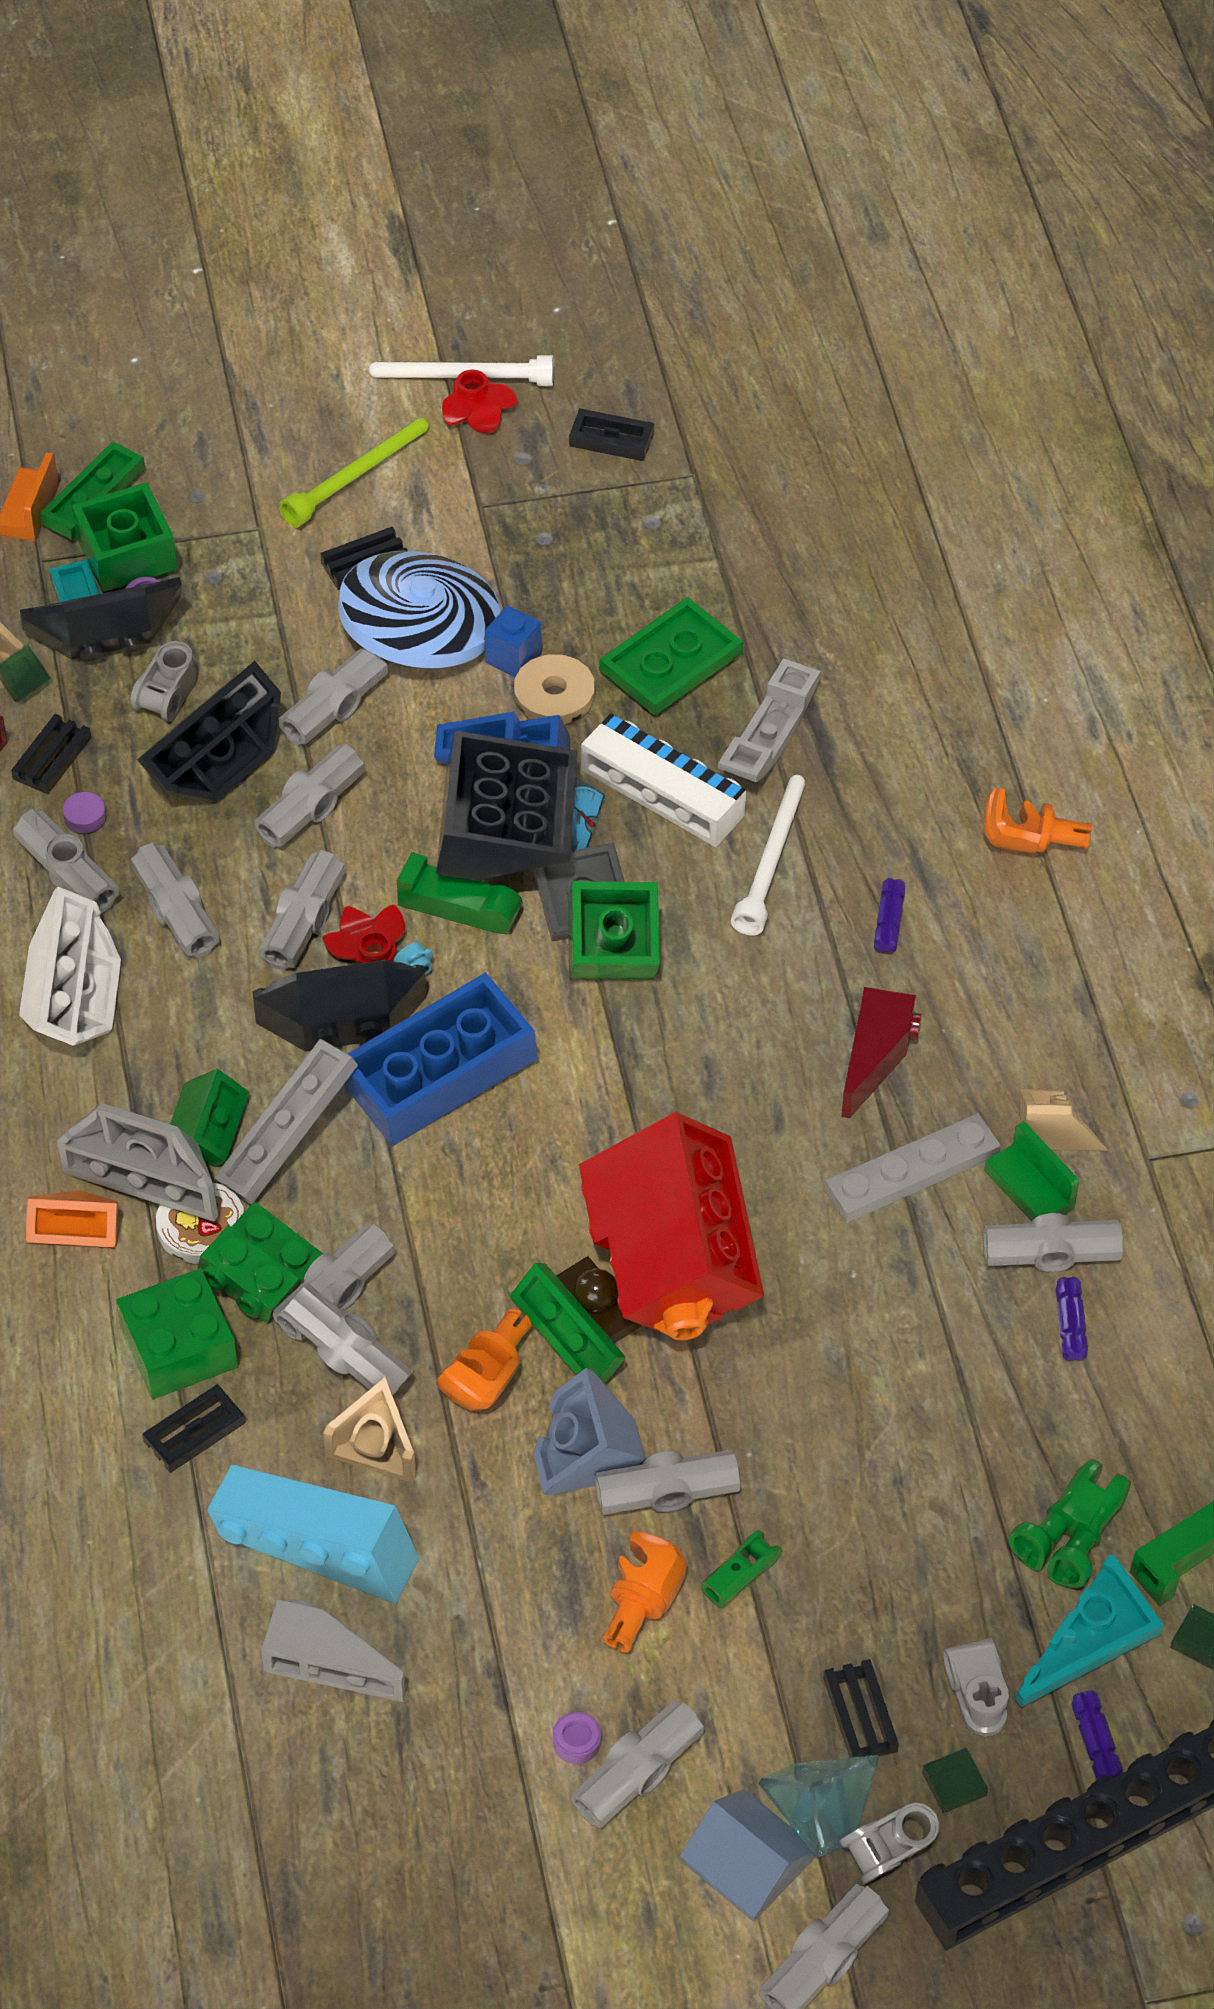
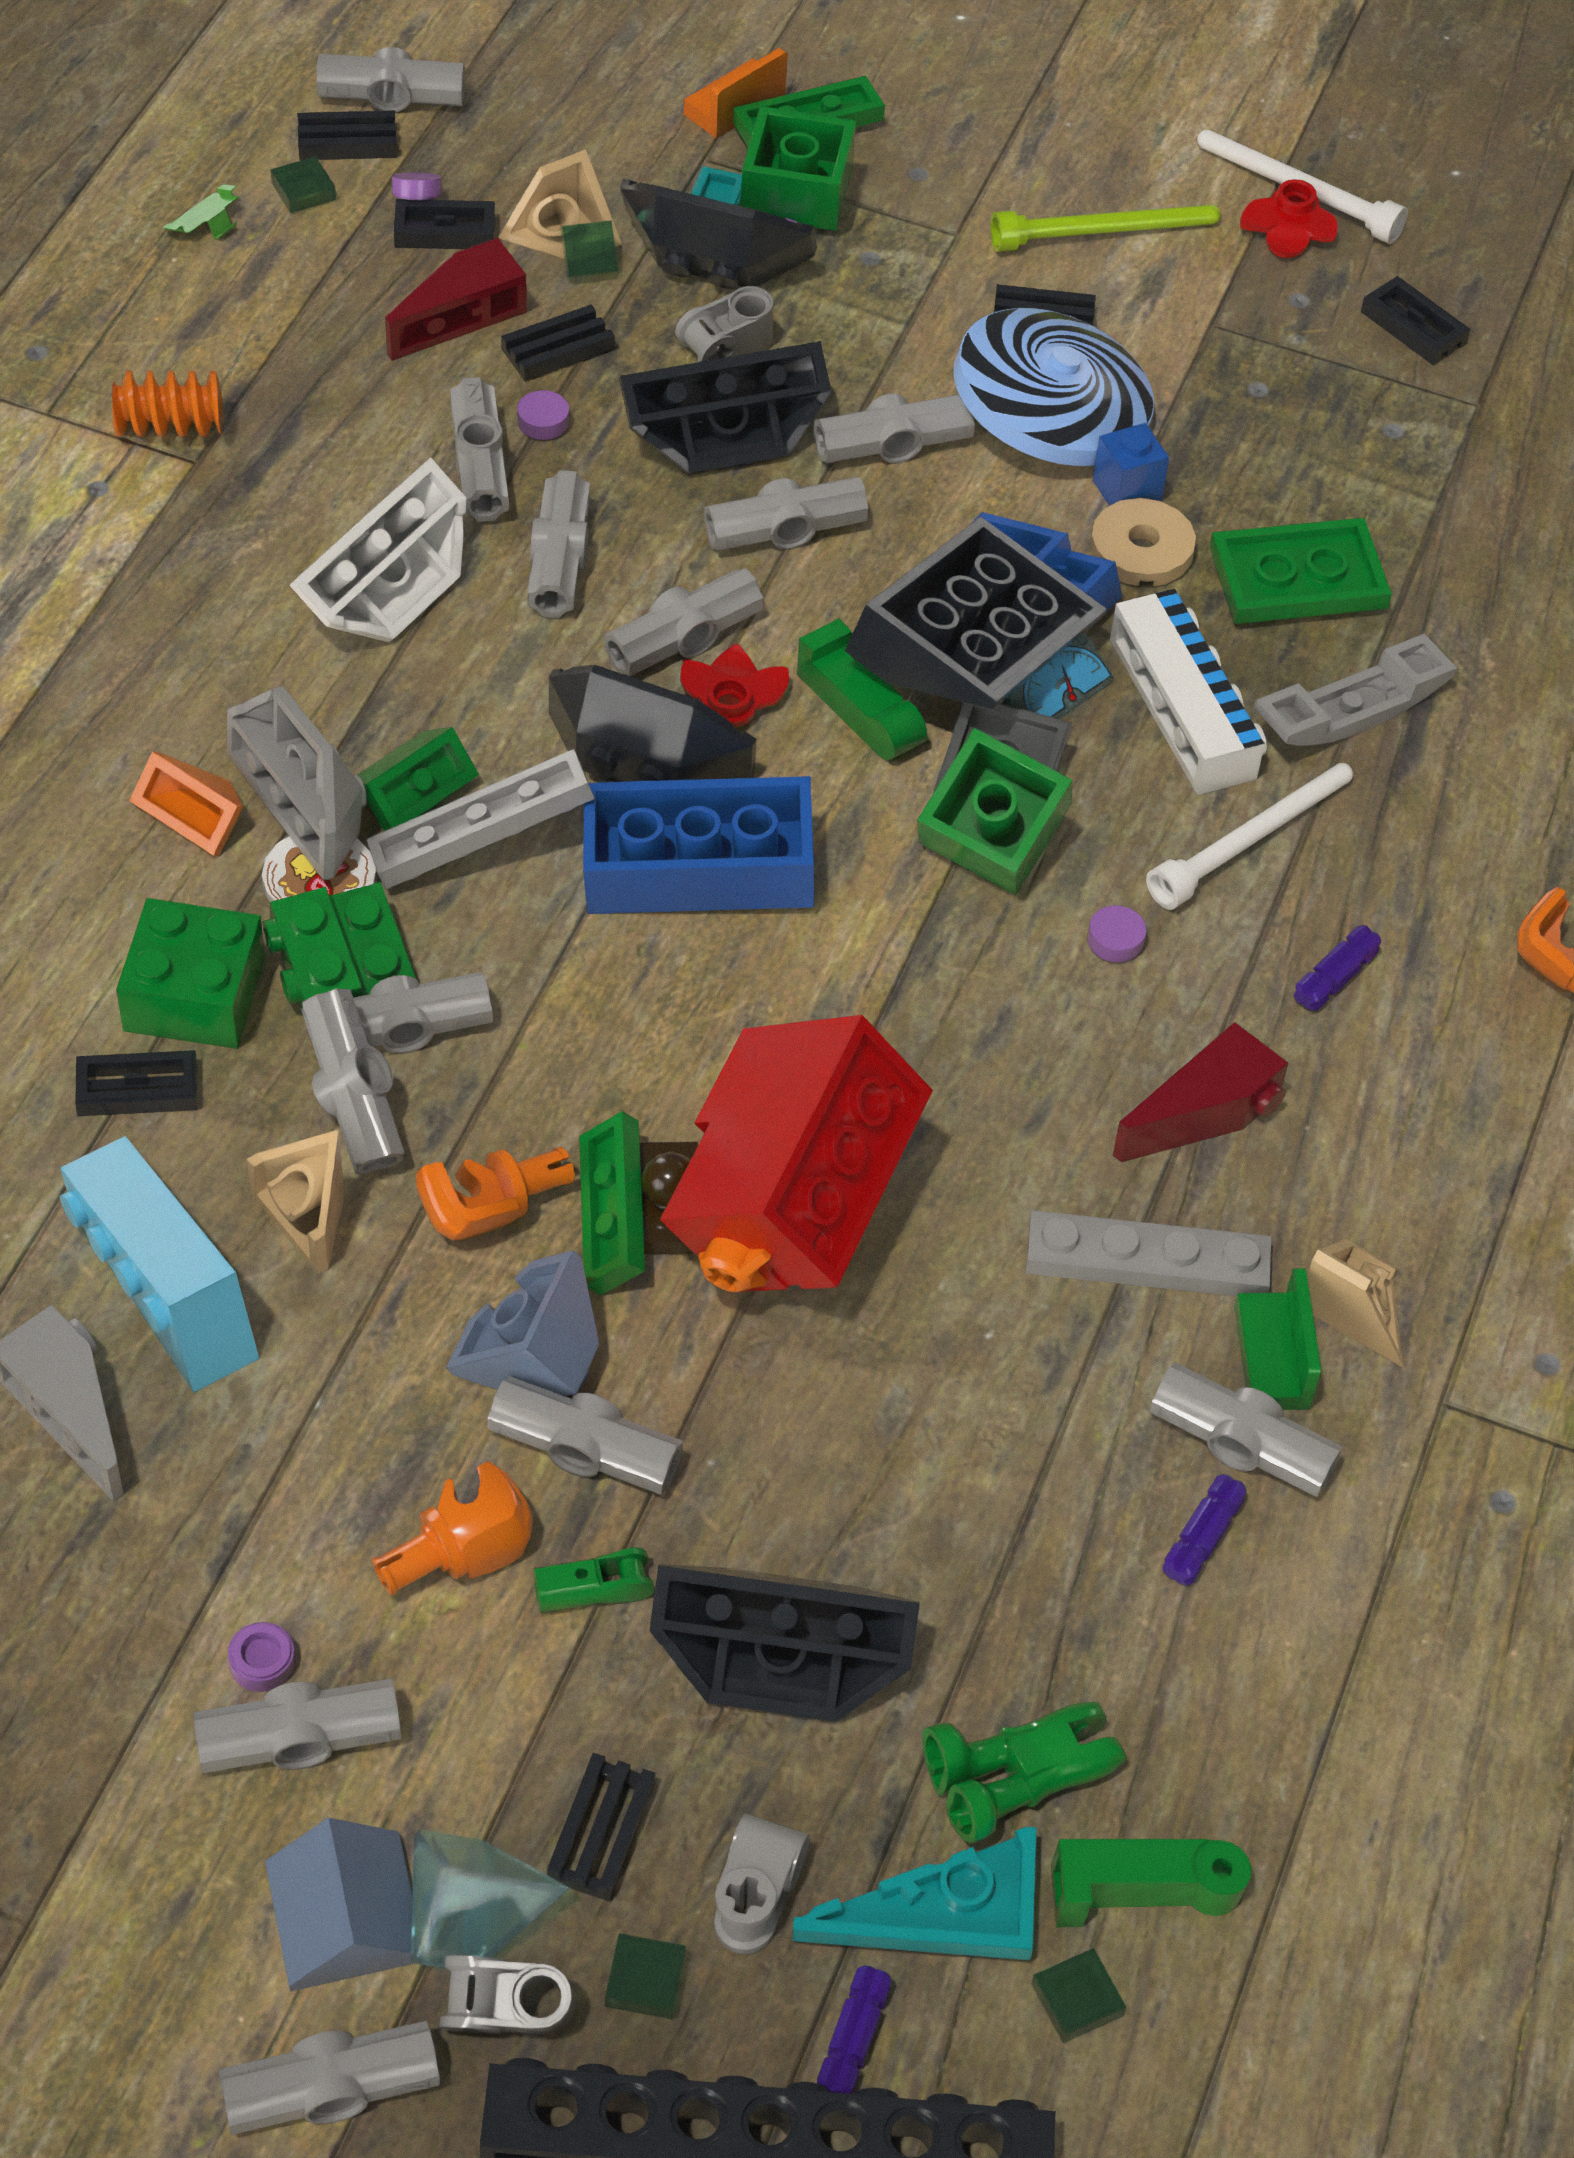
camera: 30 degrees right, 0 degrees up
(415, 954) = (767, 730): medium azure plate -> none
(738, 969) = (1116, 933): none -> medium lavender tile
(888, 1531) = (781, 1639): none -> black wedge

